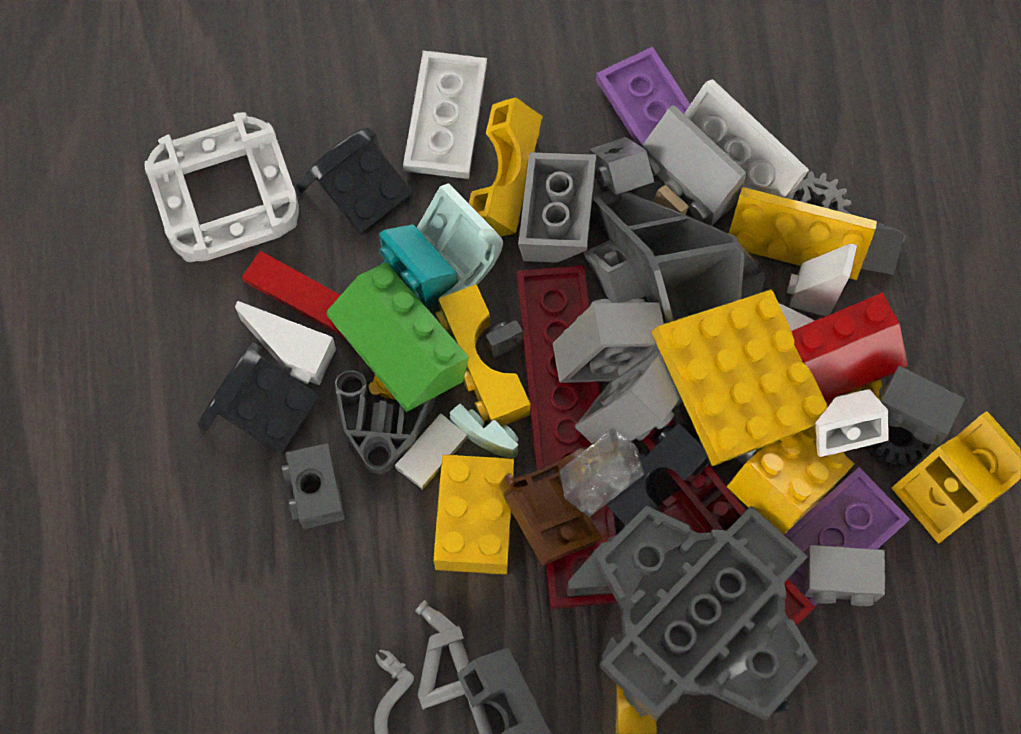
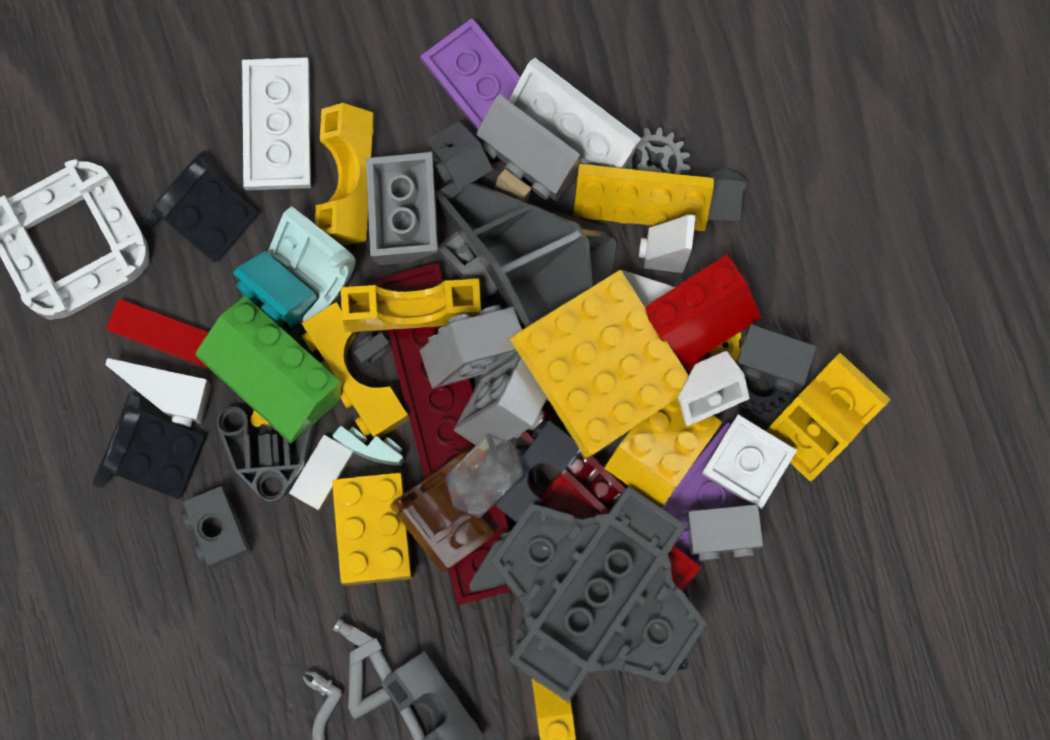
camera: 10 degrees left, 10 degrees up
(516, 294) = (380, 309): none -> yellow arch
(878, 508) = (749, 462): none -> white plate

